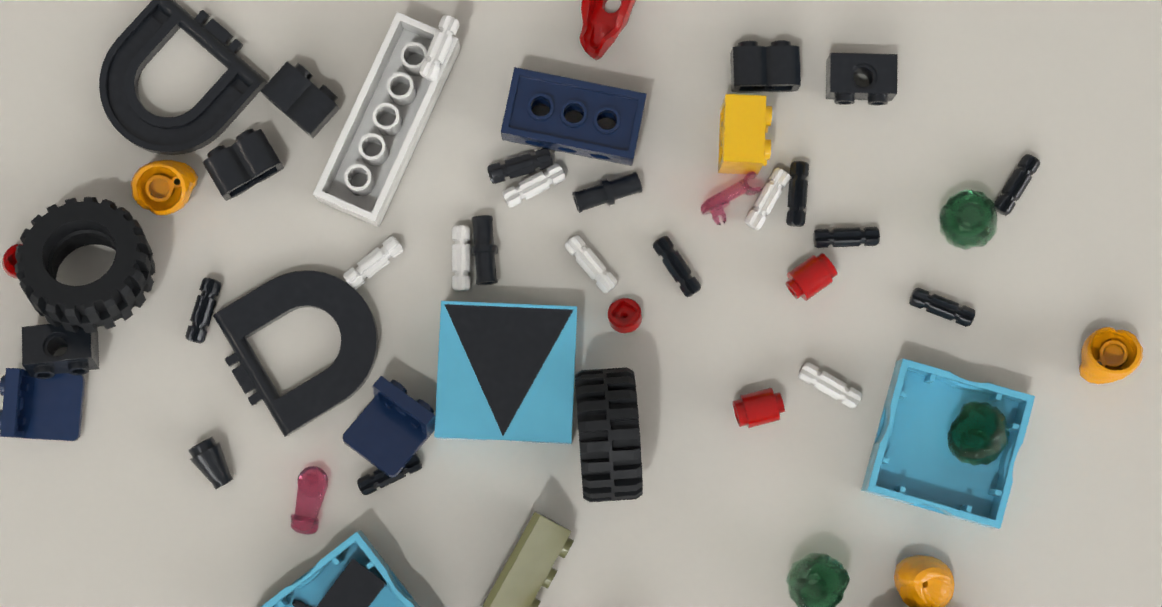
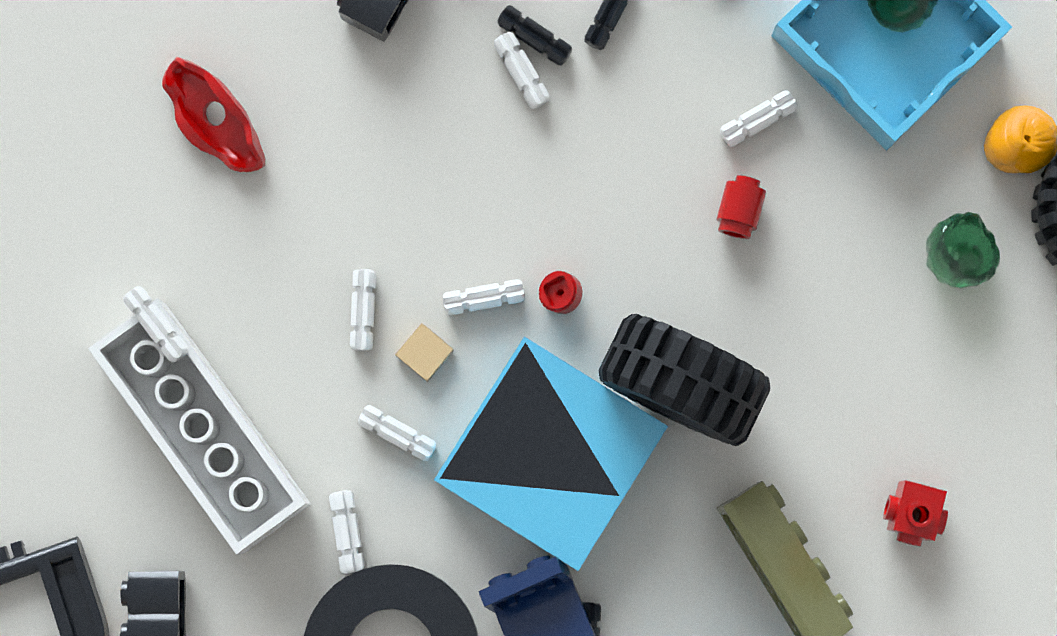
camera: 55 degrees left, 0 degrees up
(300, 99) = (120, 510): black brick -> none
(484, 250) = (403, 403): black pin -> none
(520, 165) = (333, 313): black axle -> none
(528, 245) = (424, 352): none -> tan tile
(568, 95) = (311, 196): dark blue brick -> none
(607, 192) = (416, 235): black pin -> none
(676, 266) = (538, 207): black axle -> none
(722, 199) = (495, 125): clear pink piece -> none
(742, 134) = (440, 53): yellow brick -> none
(811, 276) = (632, 71): red brick -> none

